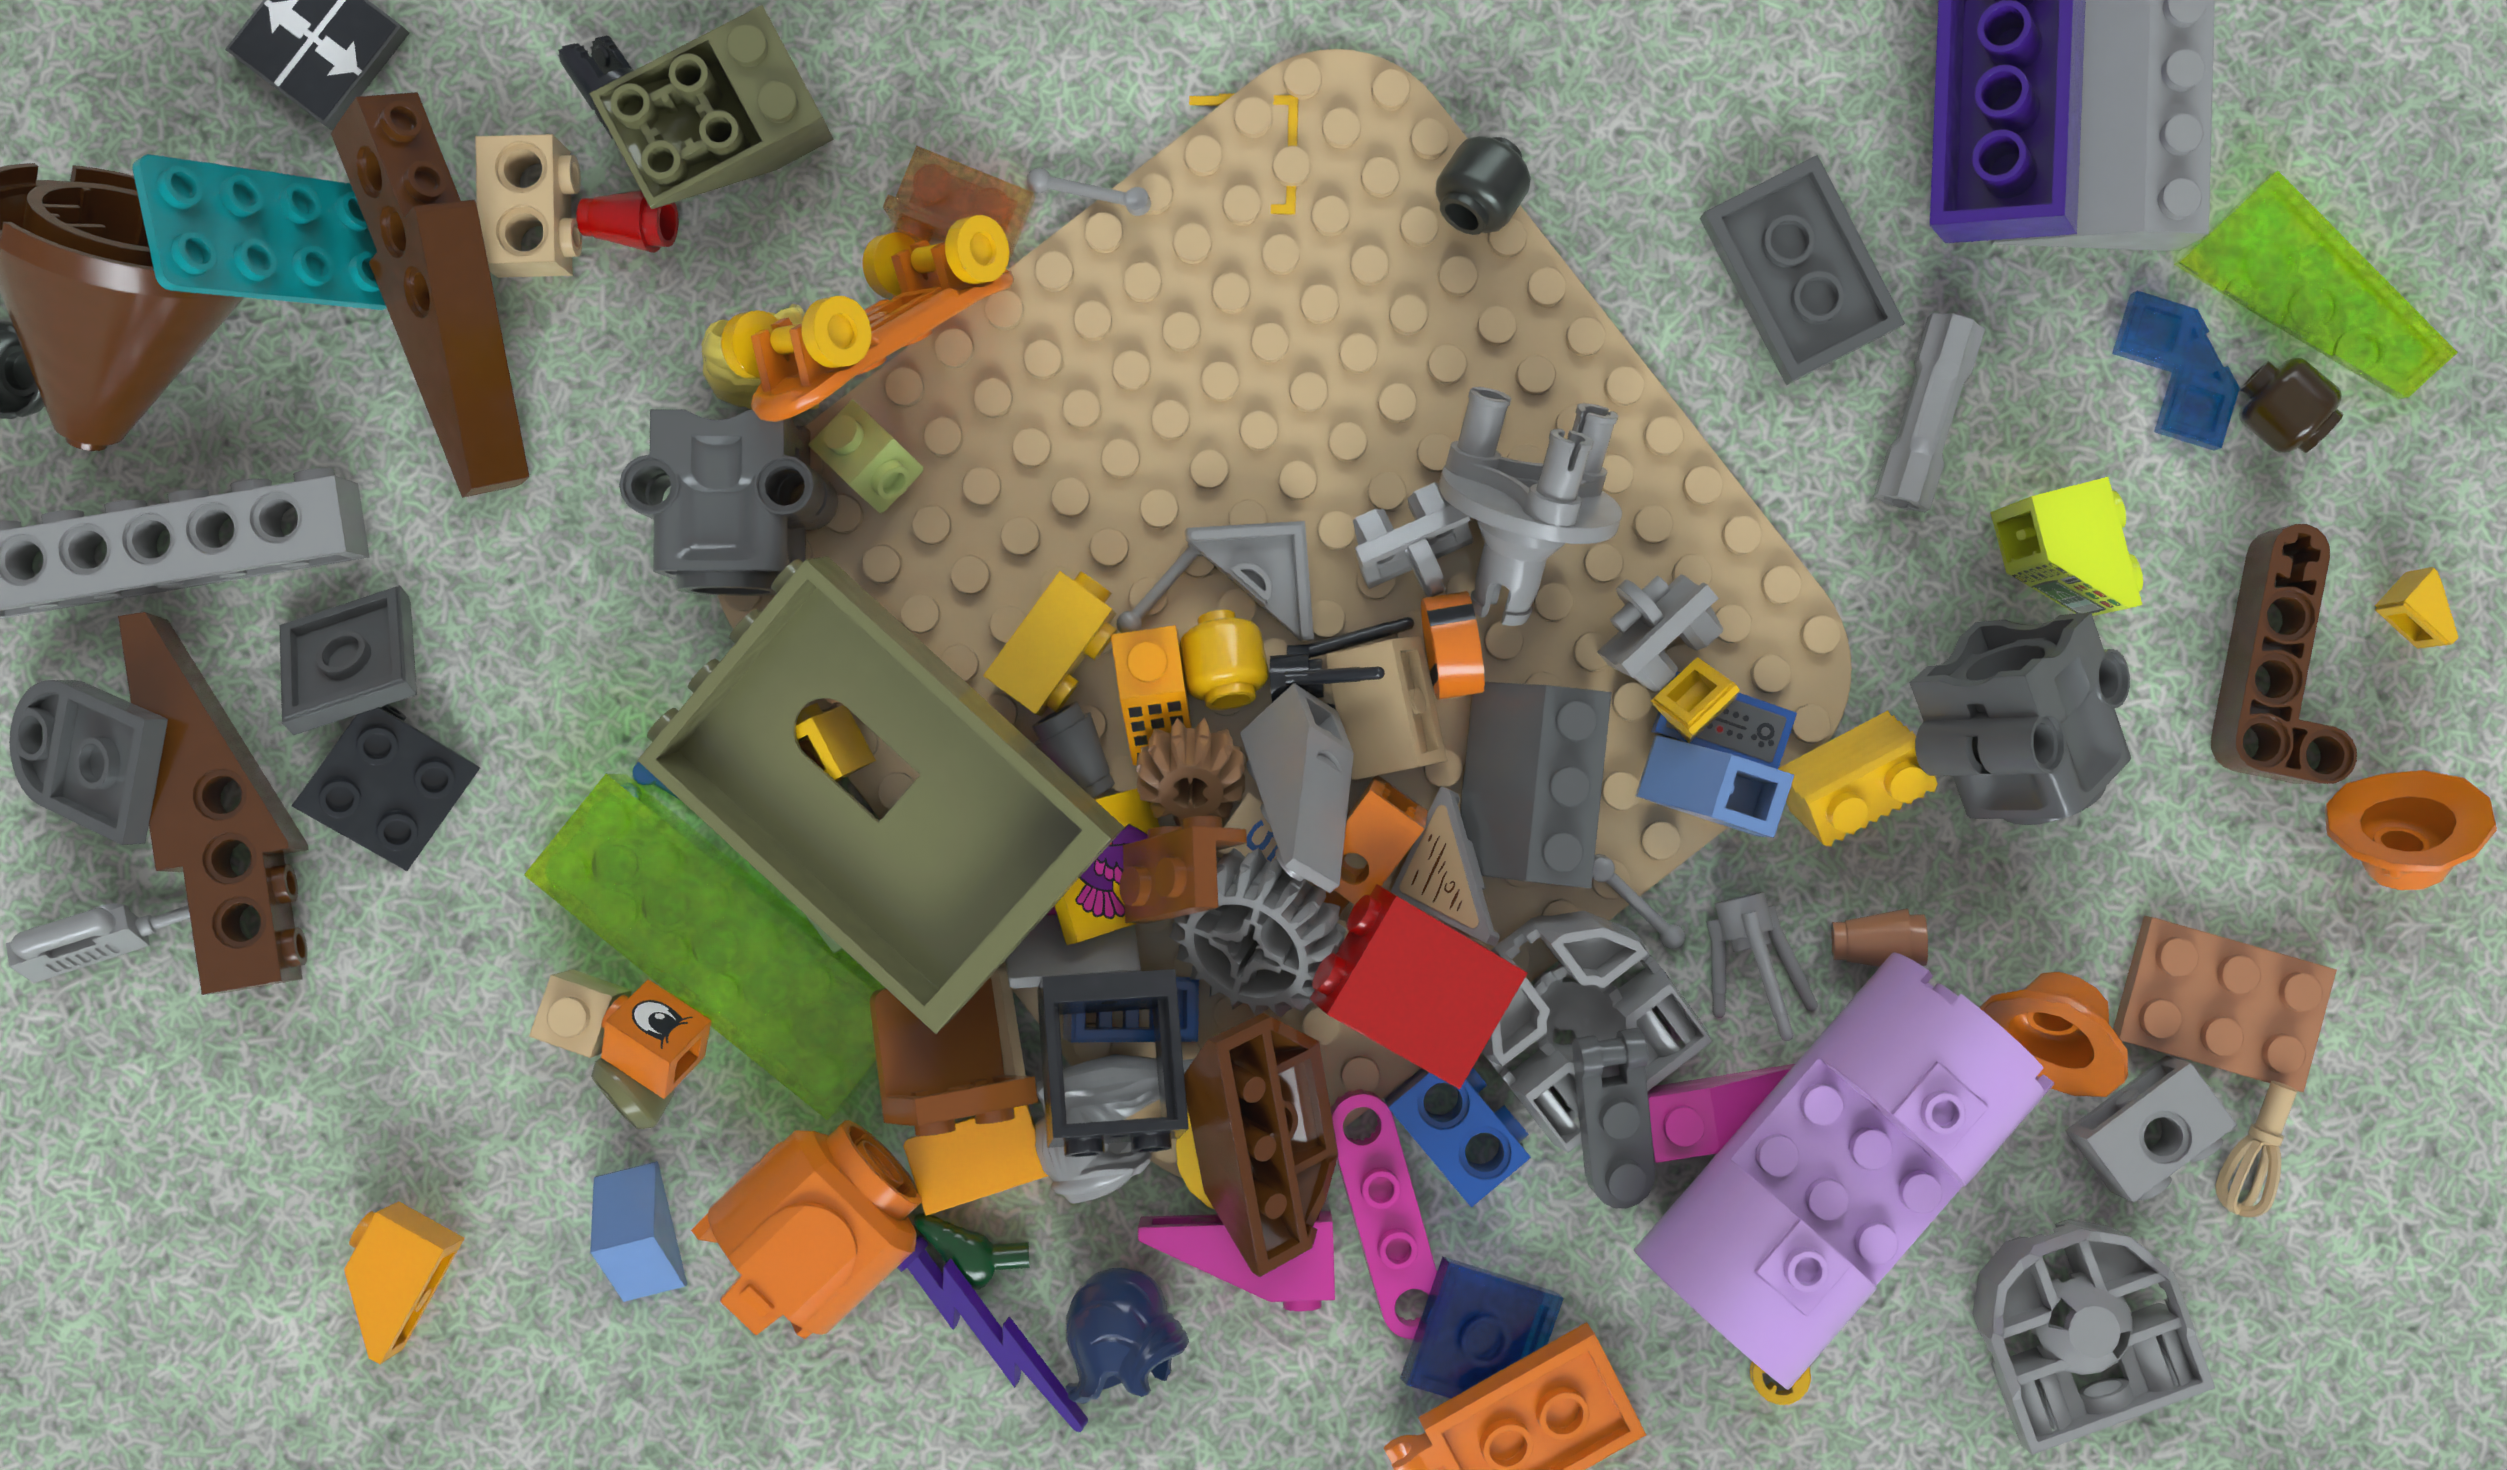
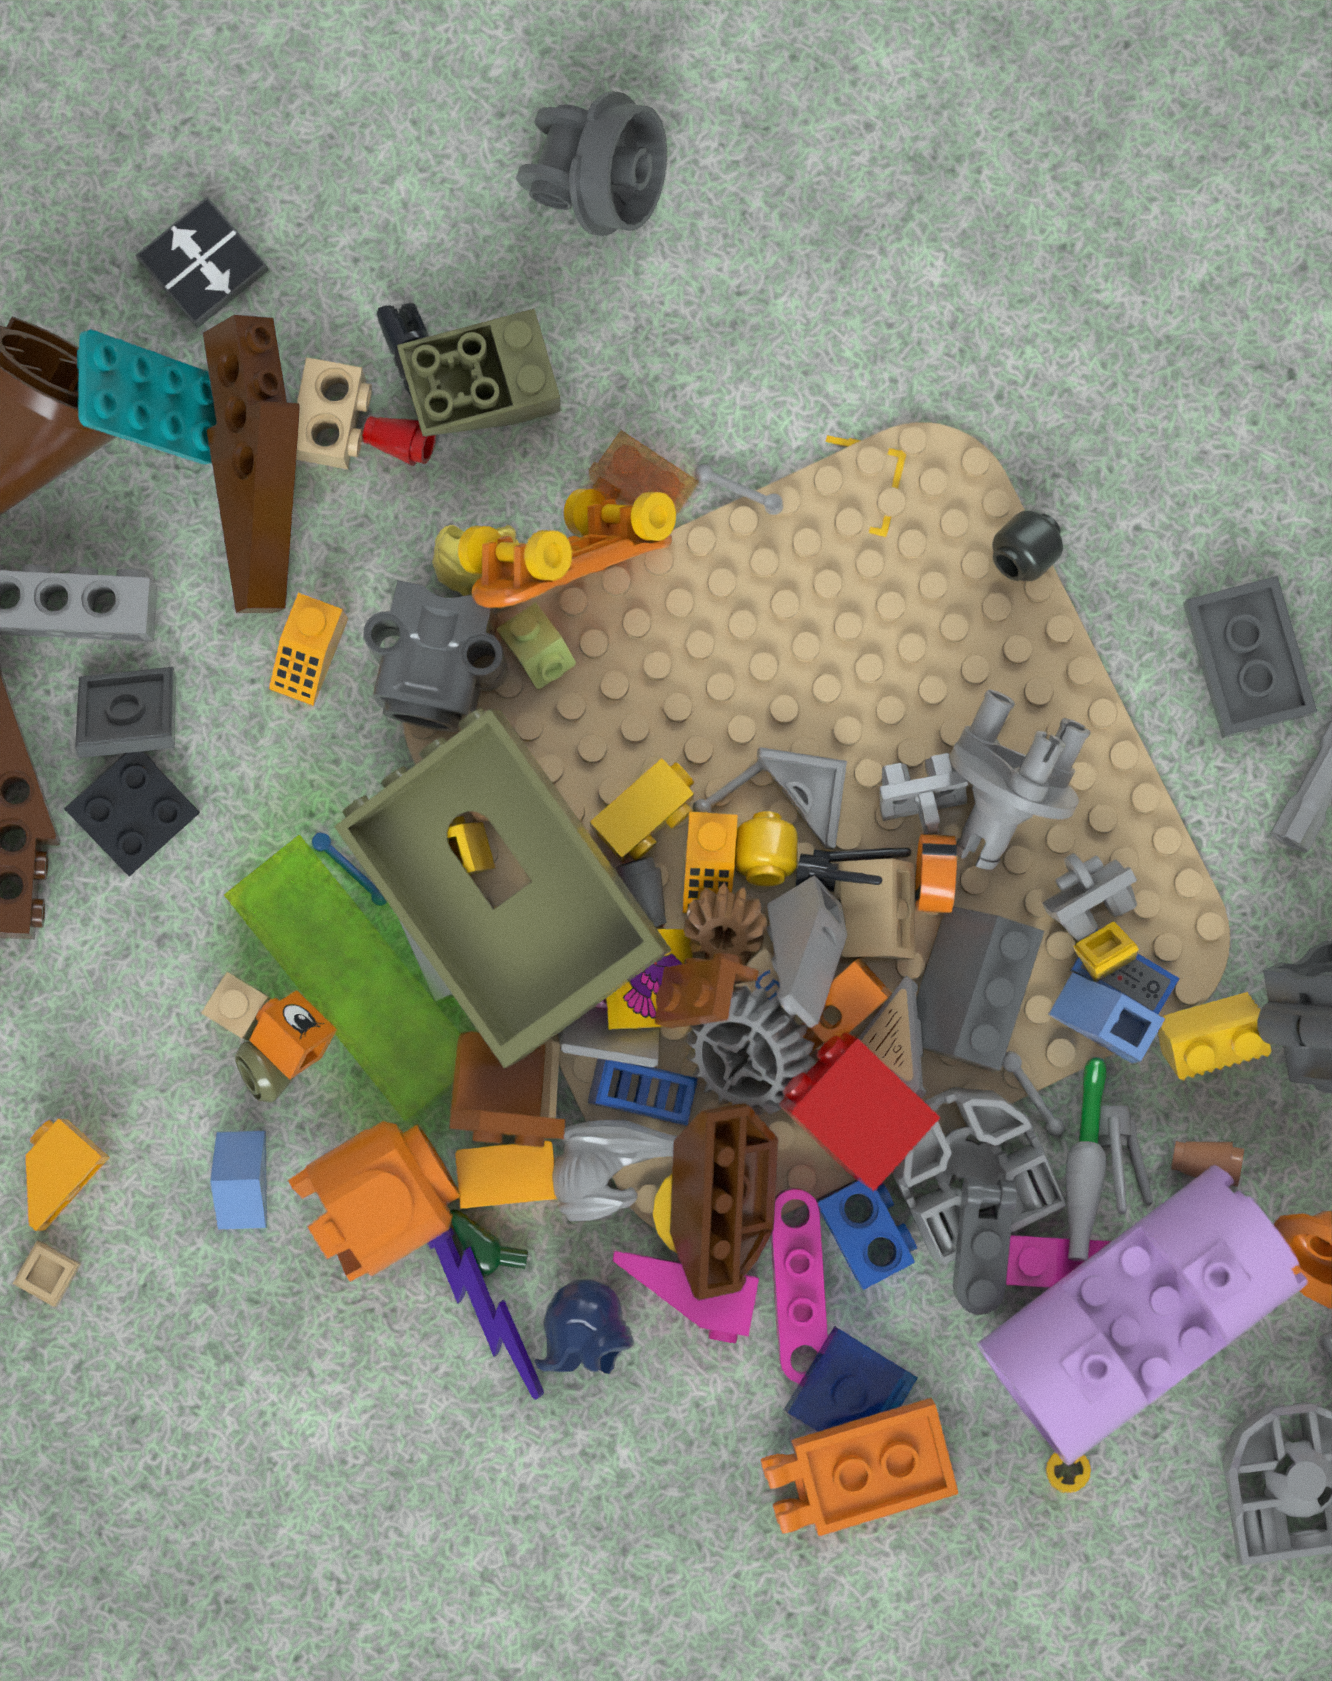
camera: 10 degrees right, 5 degrees down
(415, 1406) = (46, 1273): none -> tan tile
(567, 523) = (307, 648): none -> light orange slope
(1108, 994) = (631, 1071): black window -> none
(1726, 982) = (1086, 1164): none -> light grey piece

